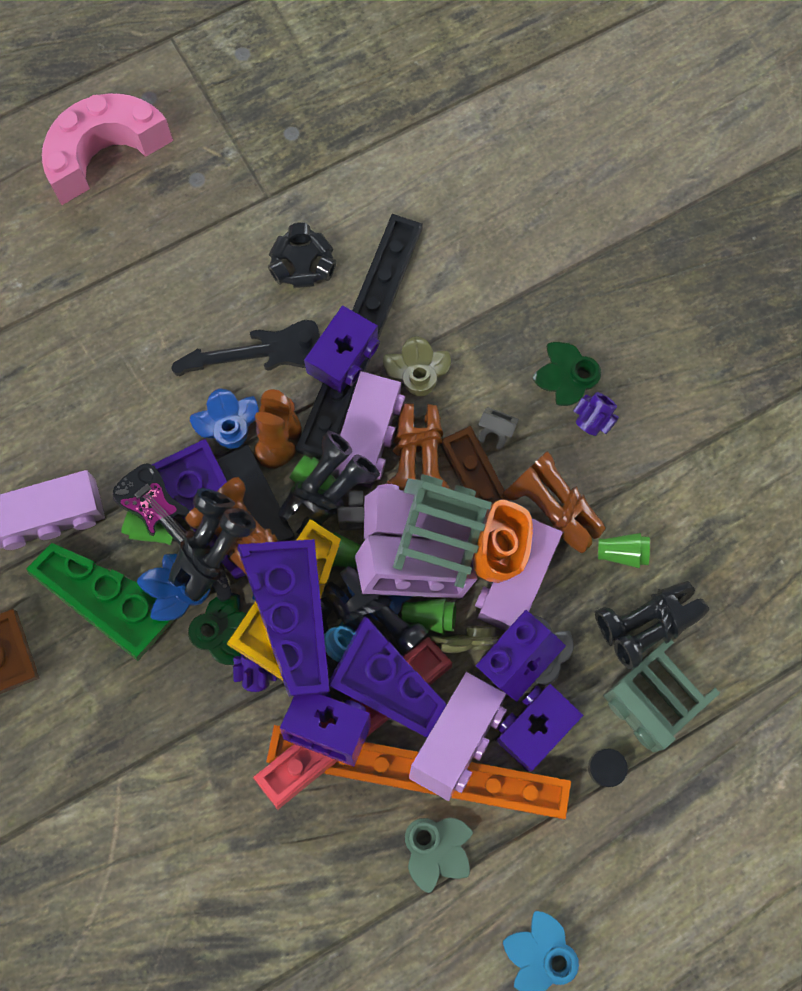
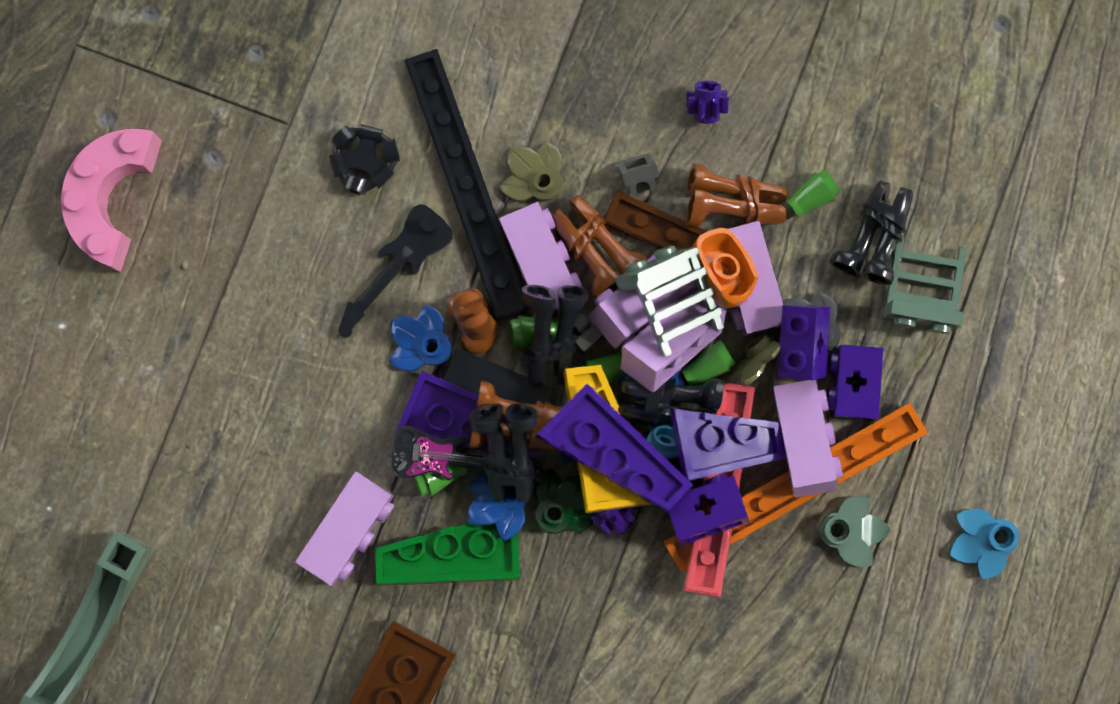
camera: 40 degrees left, 10 degrees up
(343, 332) = (458, 194): dark purple brick -> none
(562, 374) = (652, 88): dark green plate -> none
(607, 768) = (928, 370): black tile -> none

